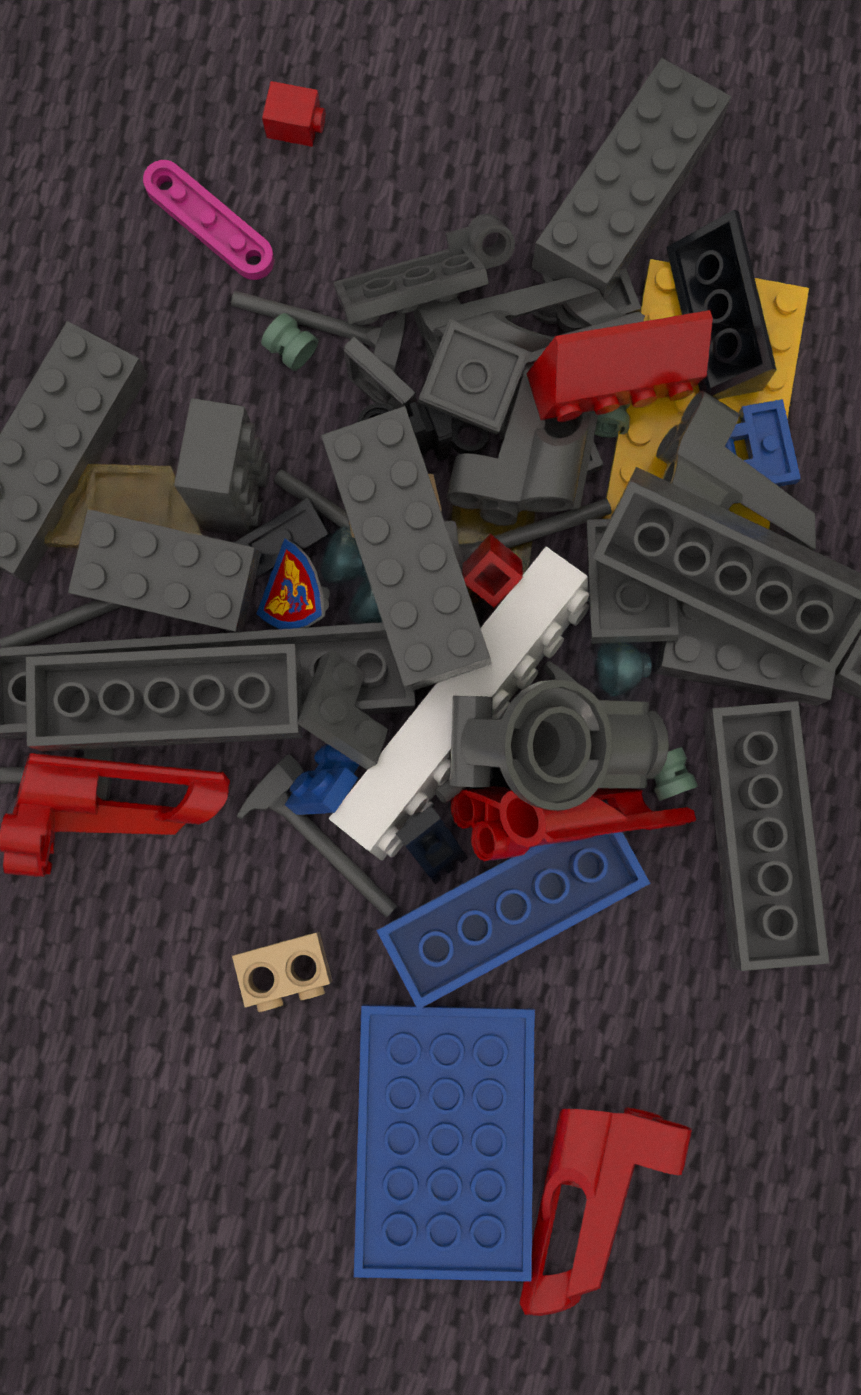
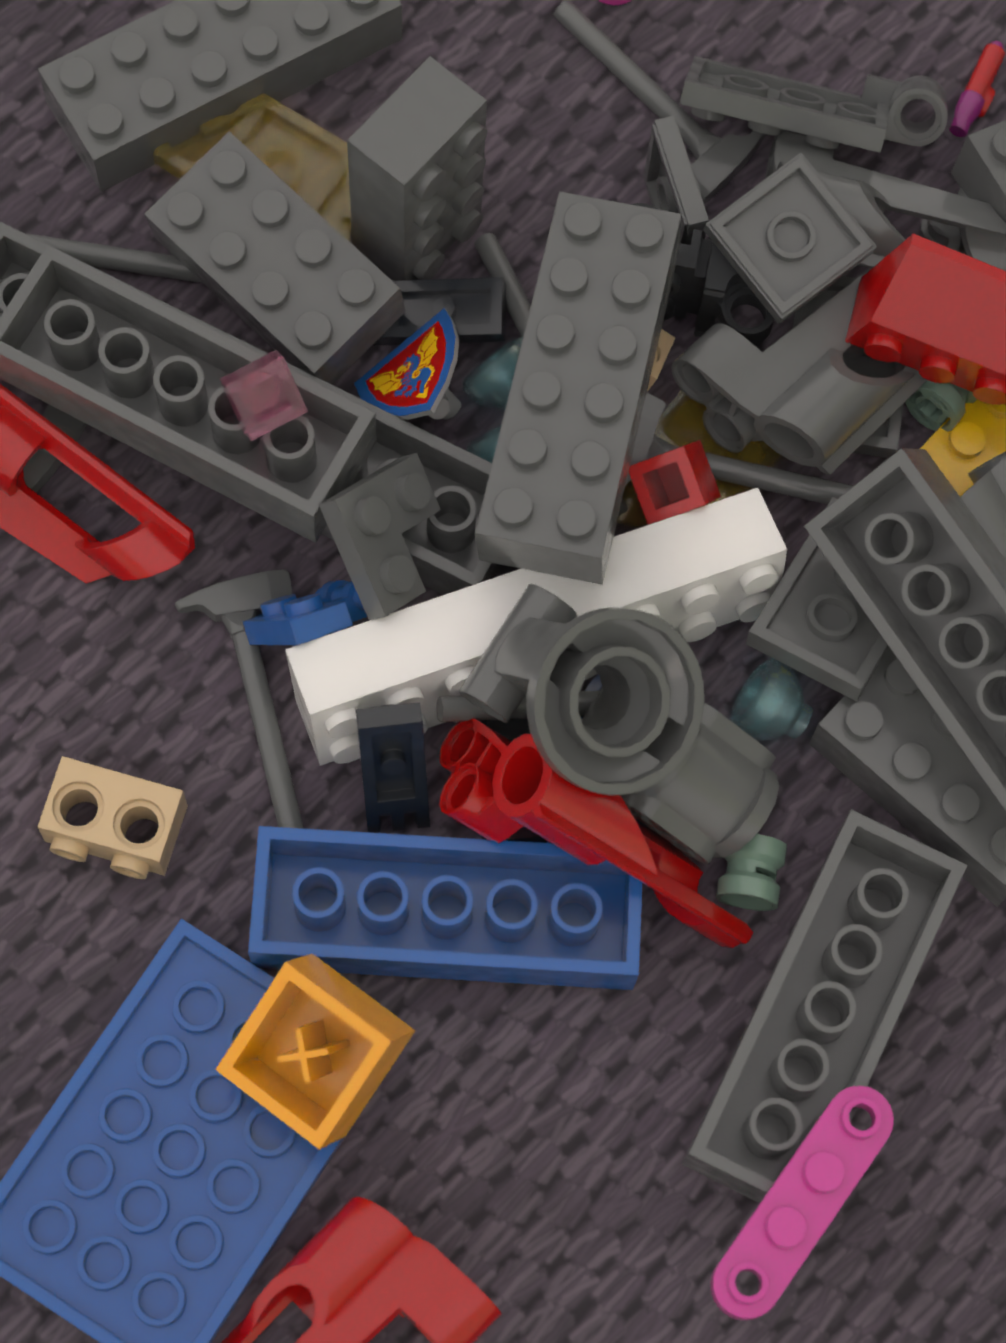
camera: 25 degrees right, 10 degrees down
(222, 677) = (263, 395): none -> clear pink plate
(287, 340) = (595, 87): sand green wheel -> none
(494, 1046) = (315, 1050): none -> light orange brick
(516, 204) = (978, 92): none -> piece
(823, 962) = (802, 1203): none -> dark pink plate

